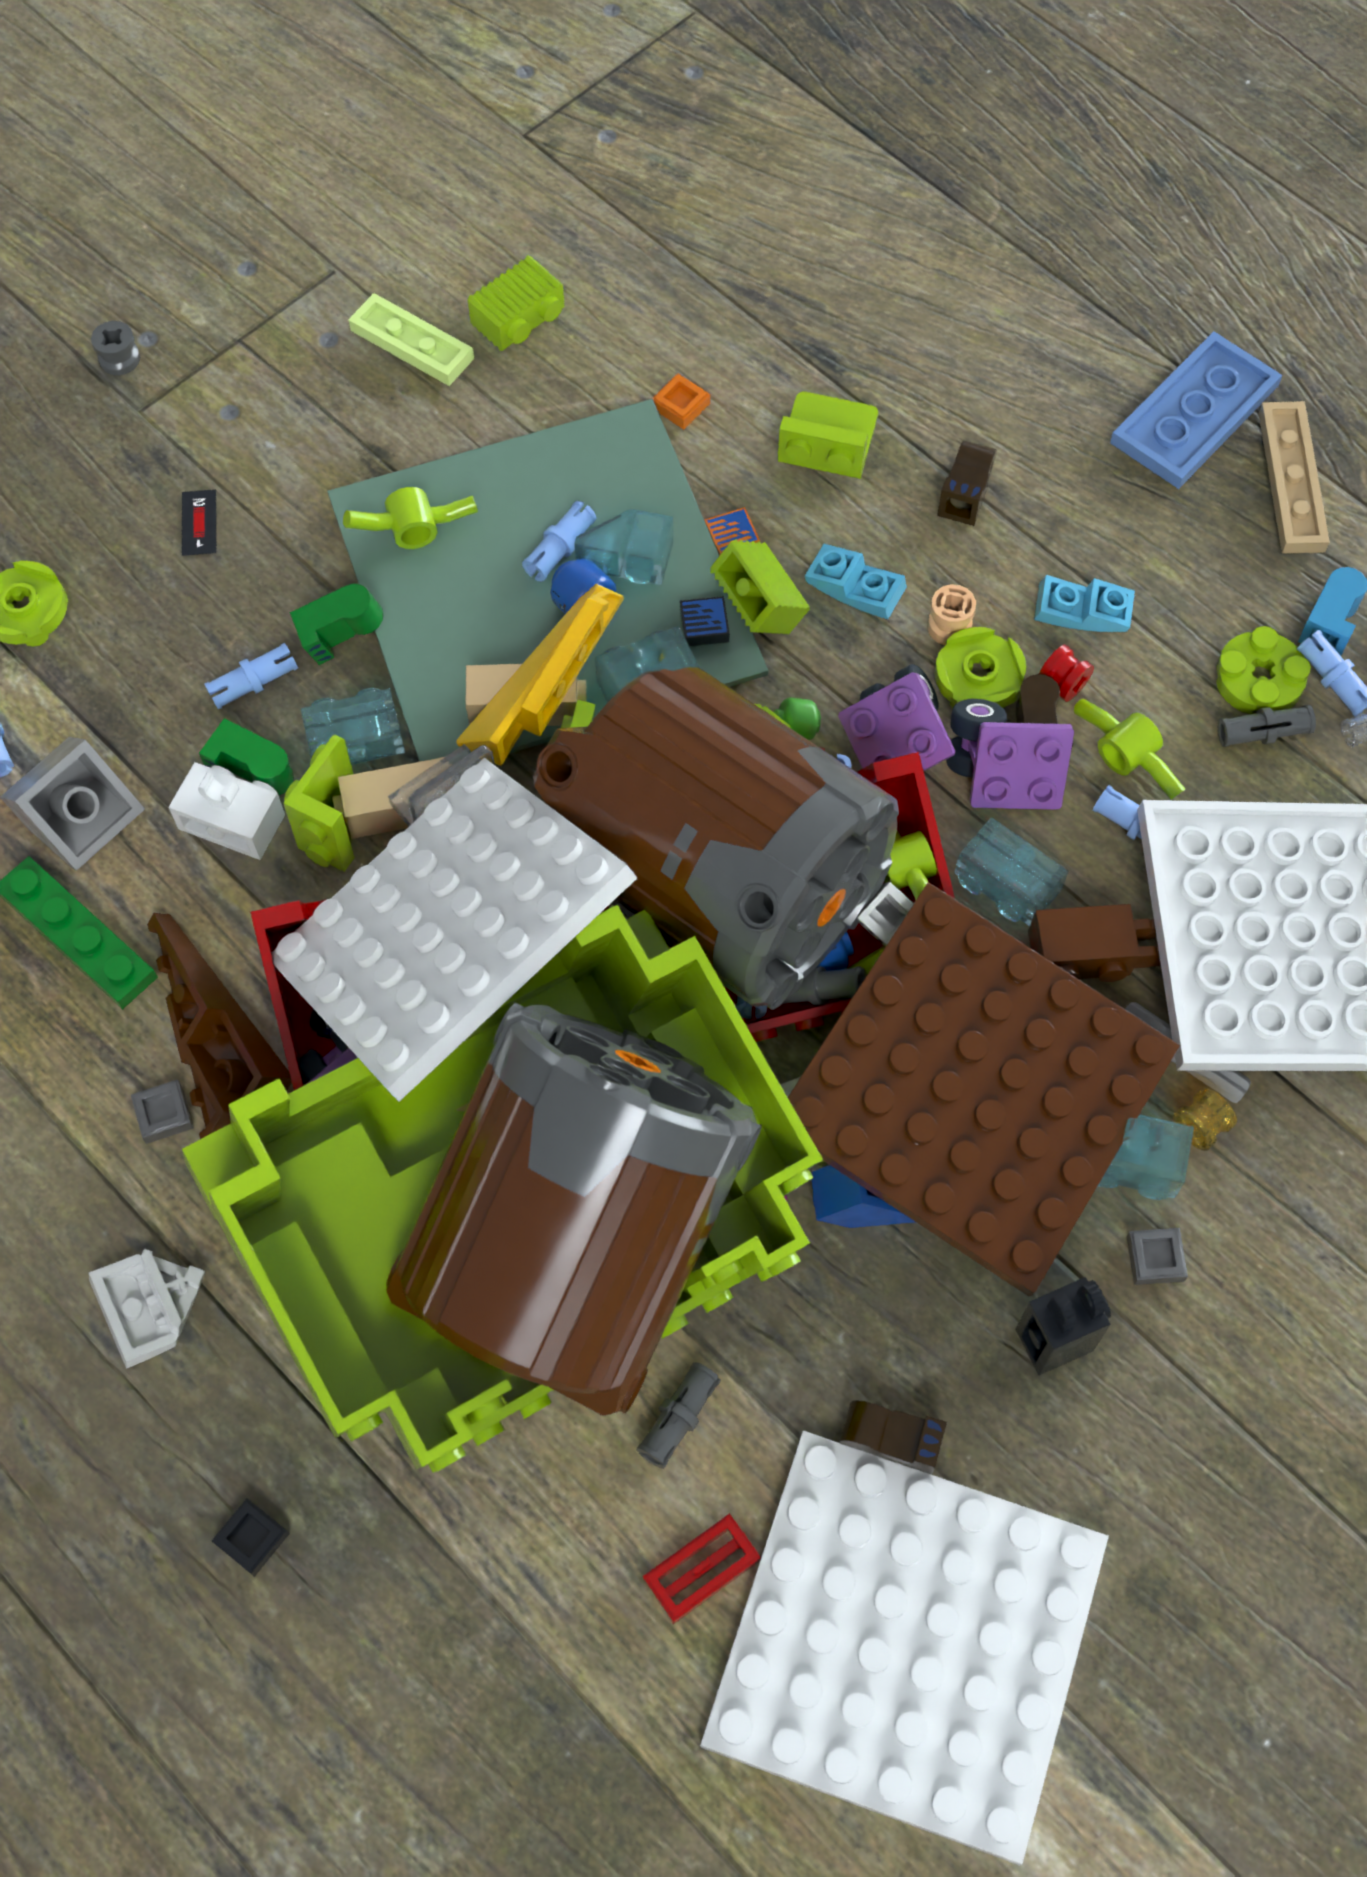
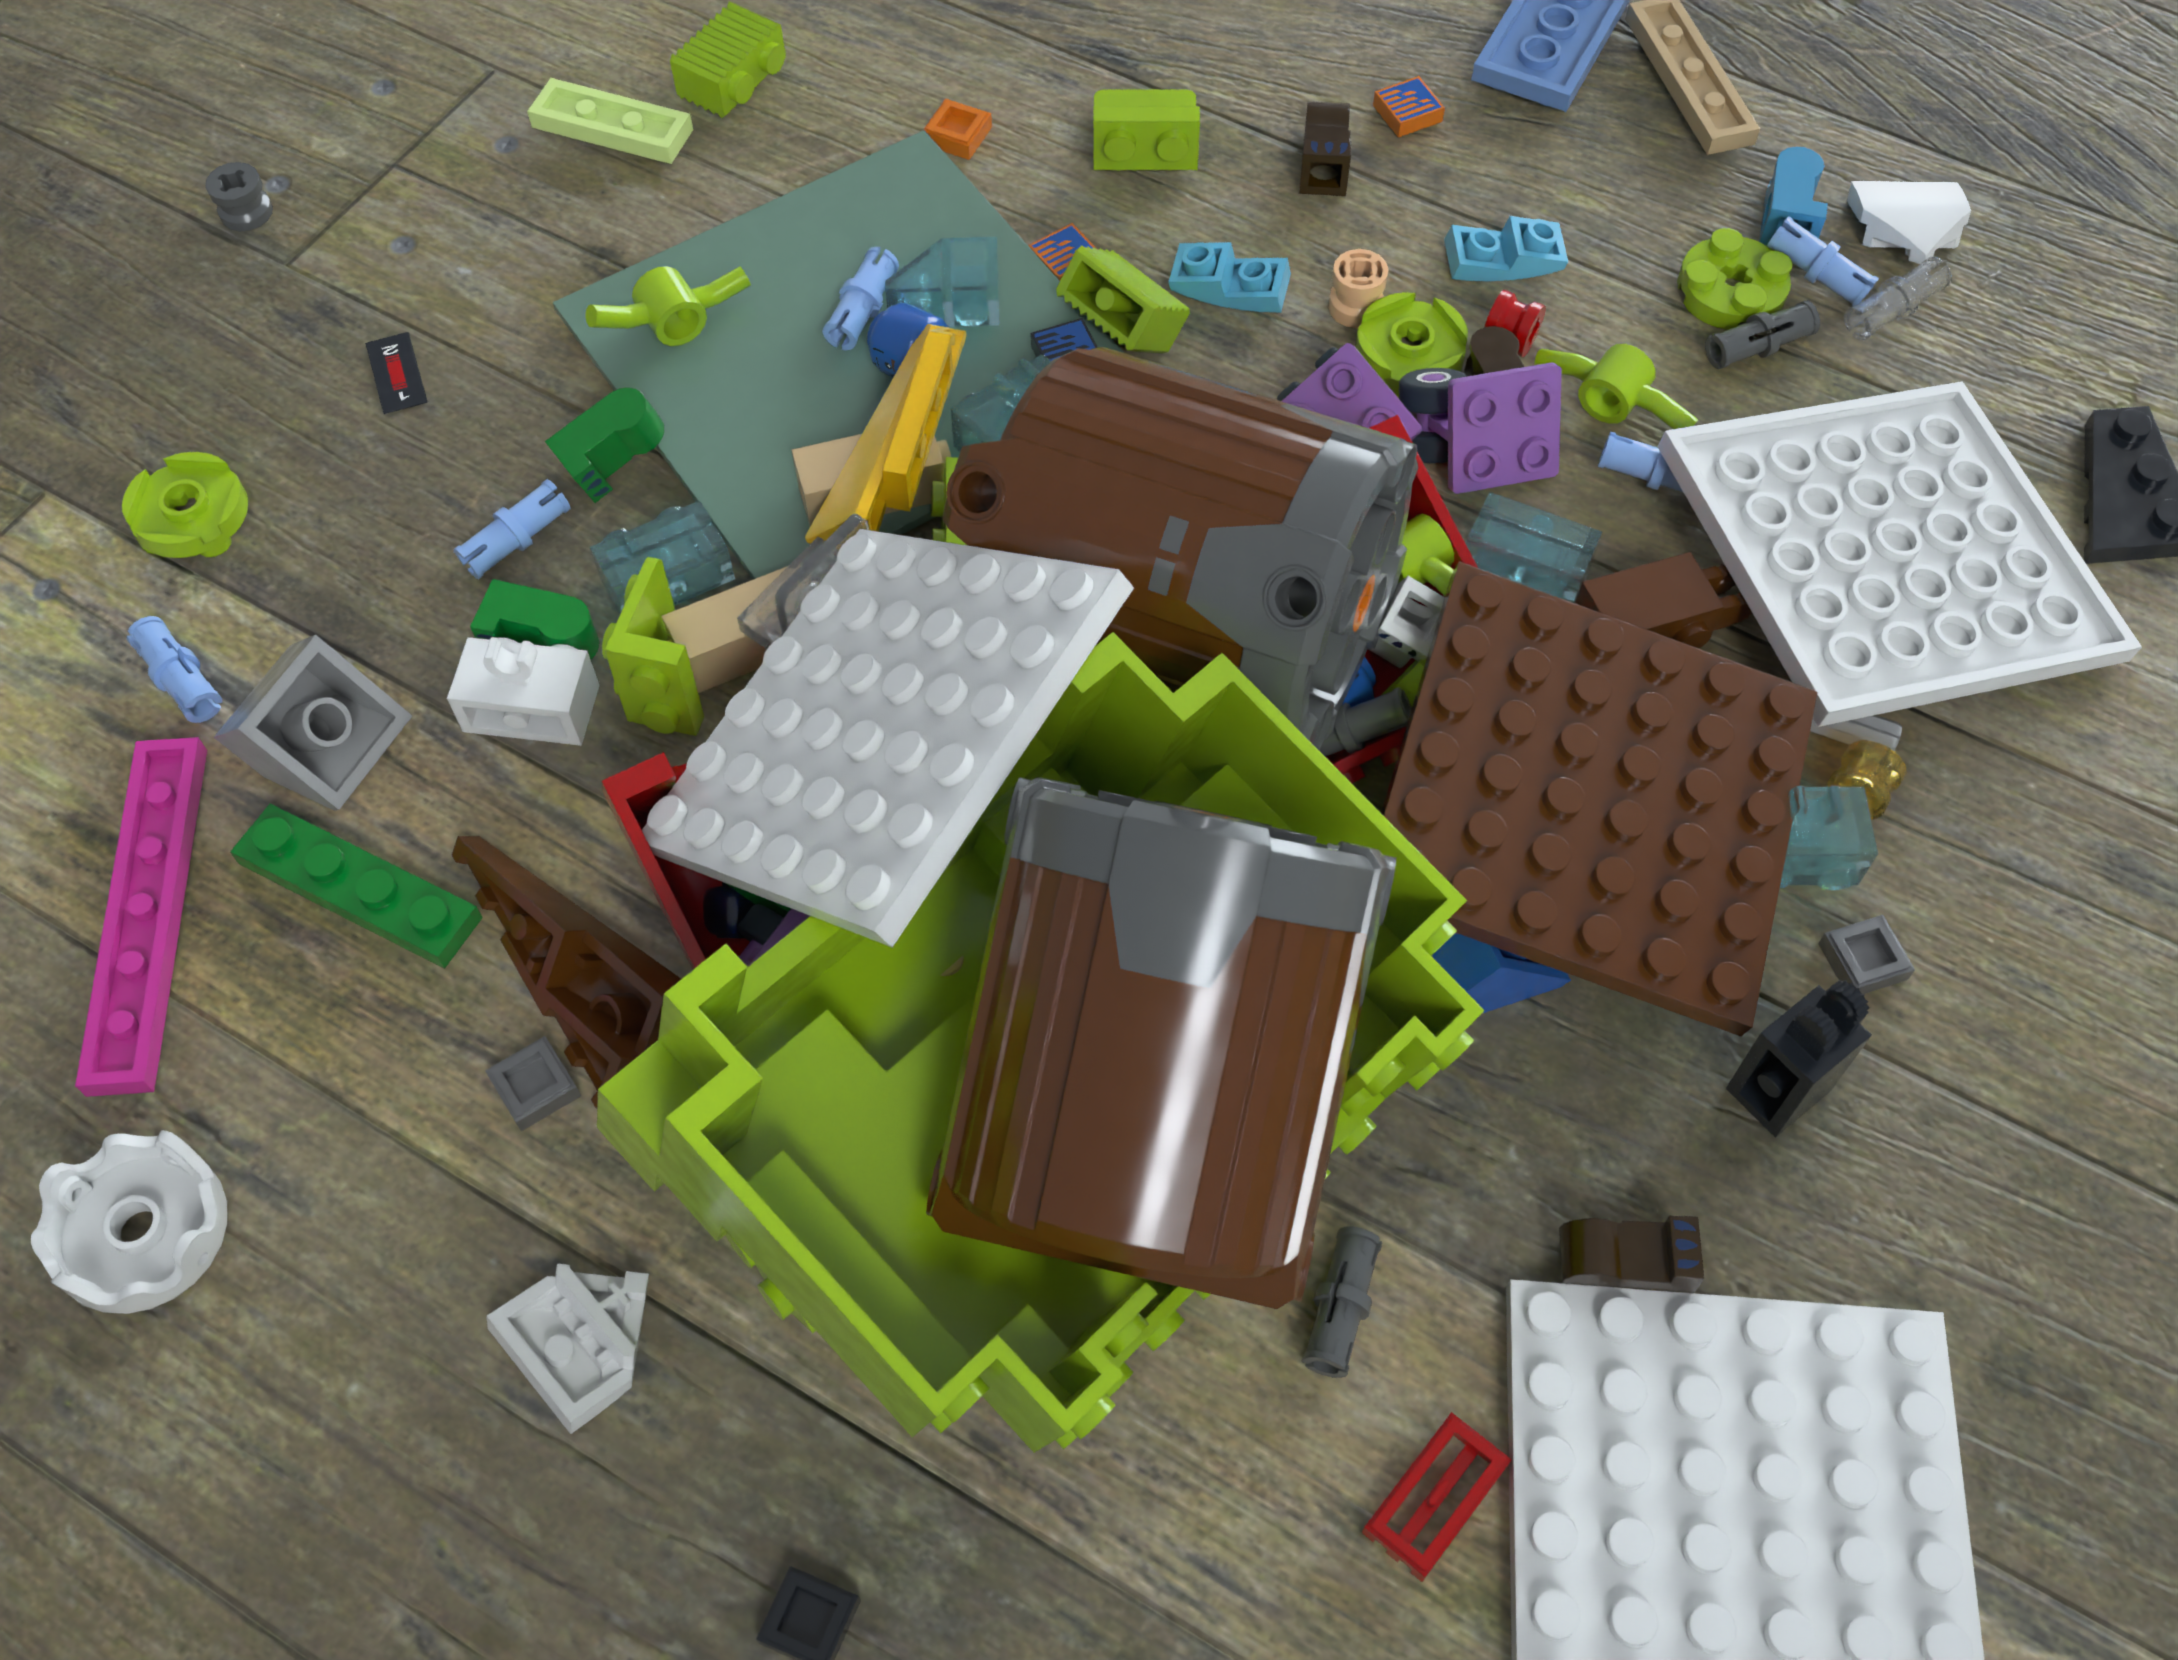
camera: 15 degrees left, 5 degrees down
(1049, 457) = (1408, 106): none -> orange tile

